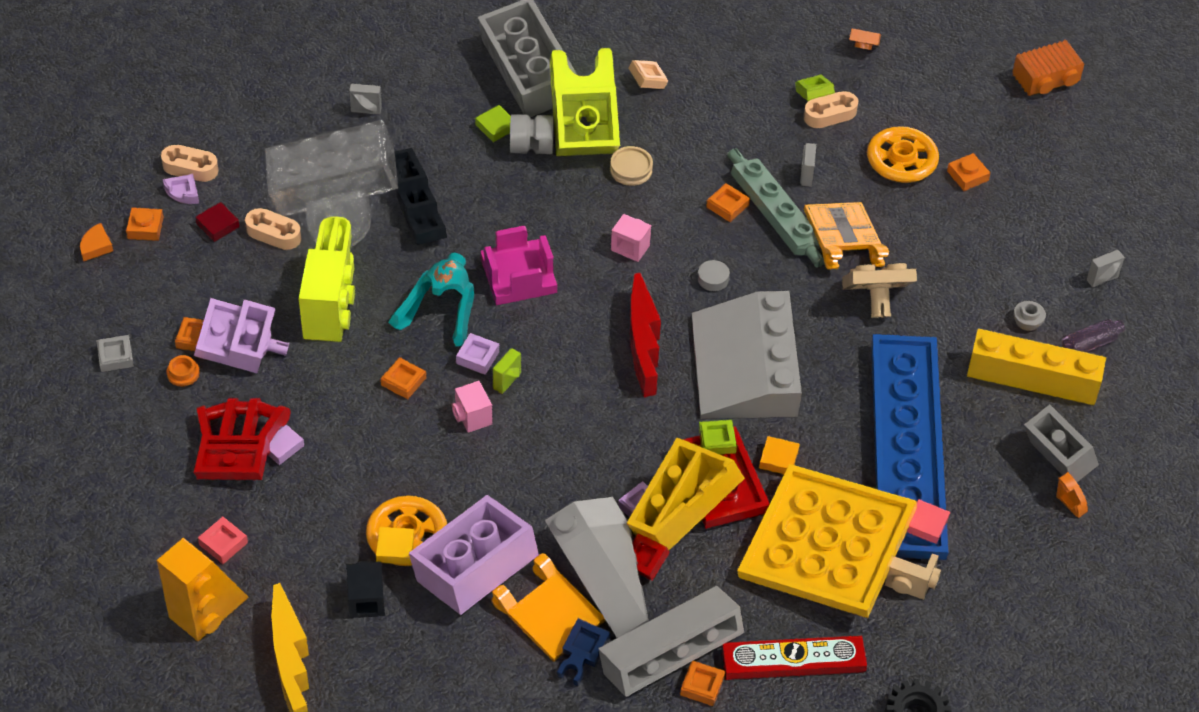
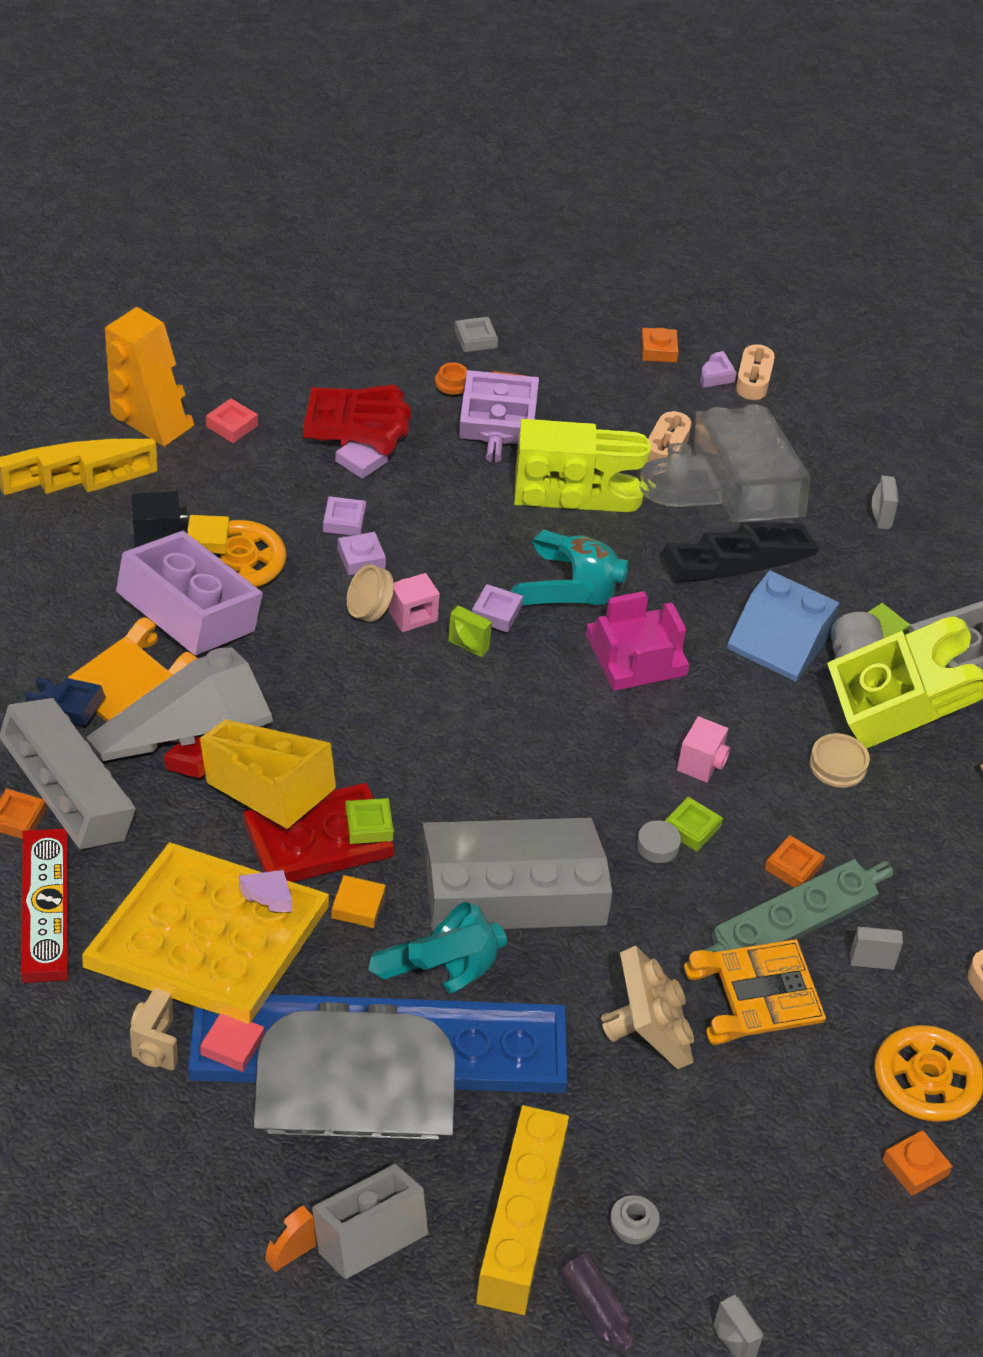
camera: 85 degrees right, 5 degrees down
(95, 243) = (625, 311): orange tile -> none
(217, 221) = (672, 396): dark red tile -> none
(356, 457) = (344, 516): none -> lavender tile
(403, 378) = (460, 551): orange tile -> none
(404, 446) = (360, 551): none -> lavender plate
(467, 433) = (370, 593): none -> tan piece
(503, 176) = (783, 625): none -> medium blue slope
(644, 333) = (552, 756): red slope -> none
(693, 254) = (694, 823): none -> lime tile
(796, 495) = (267, 889): none -> lavender tile
(832, 385) = (460, 942): none -> teal piece
(968, 442) = (355, 1075): none -> brick

